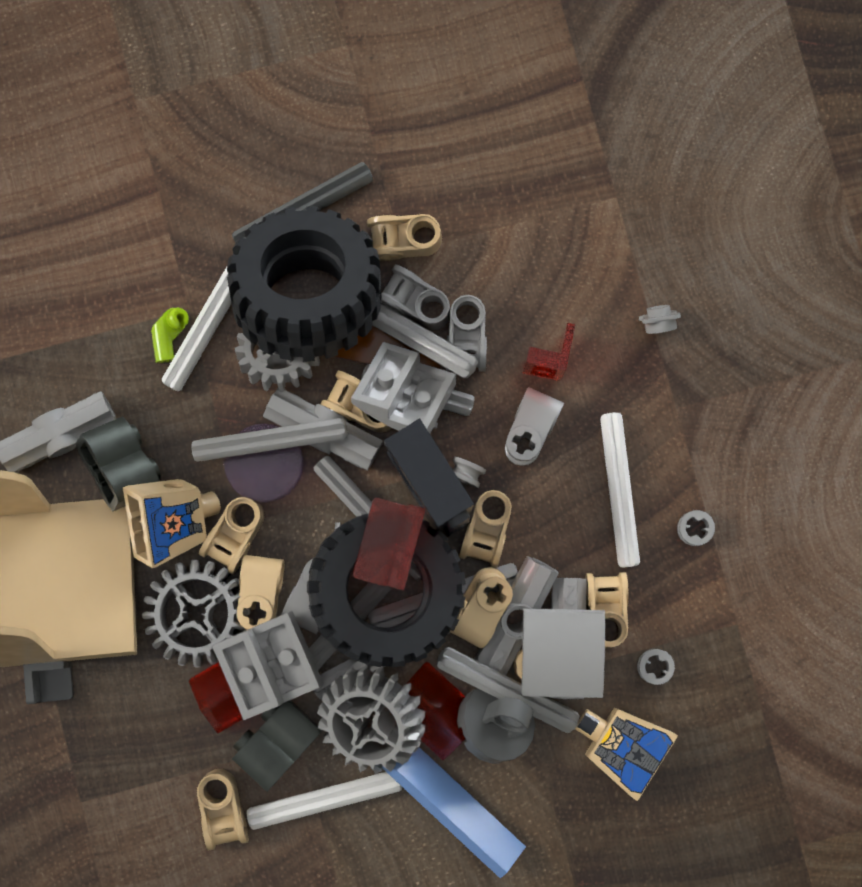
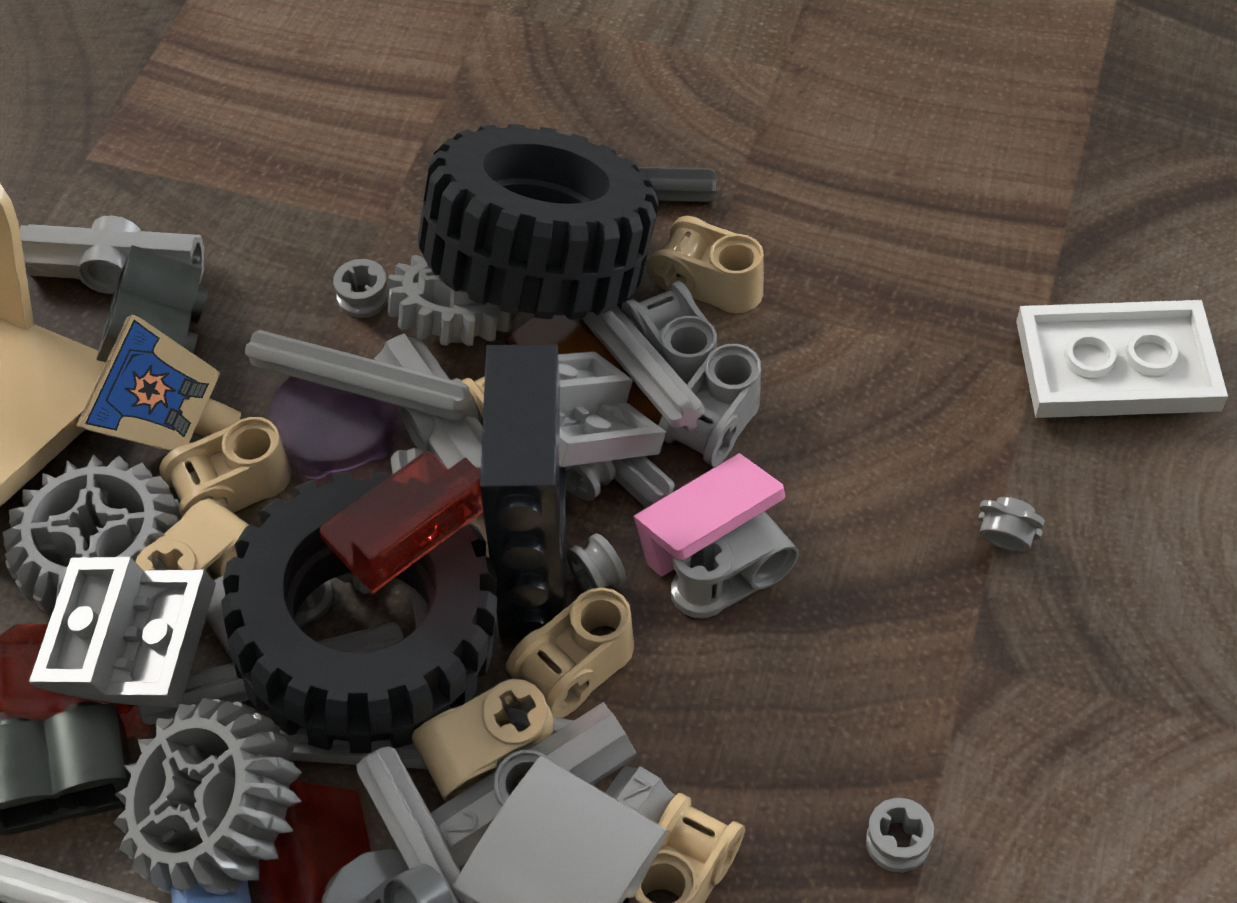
camera: 35 degrees right, 30 degrees down
(165, 331) = (334, 224): lime arm -> none
(199, 335) = (374, 244): white axle -> none
(209, 377) = (358, 273): none -> light grey bush
(510, 411) = (705, 511): none -> bright pink panel
(549, 363) = (817, 474): clear red panel -> none
(620, 490) = (808, 721): white axle -> none
(662, 170) = (1120, 359): none -> white plate

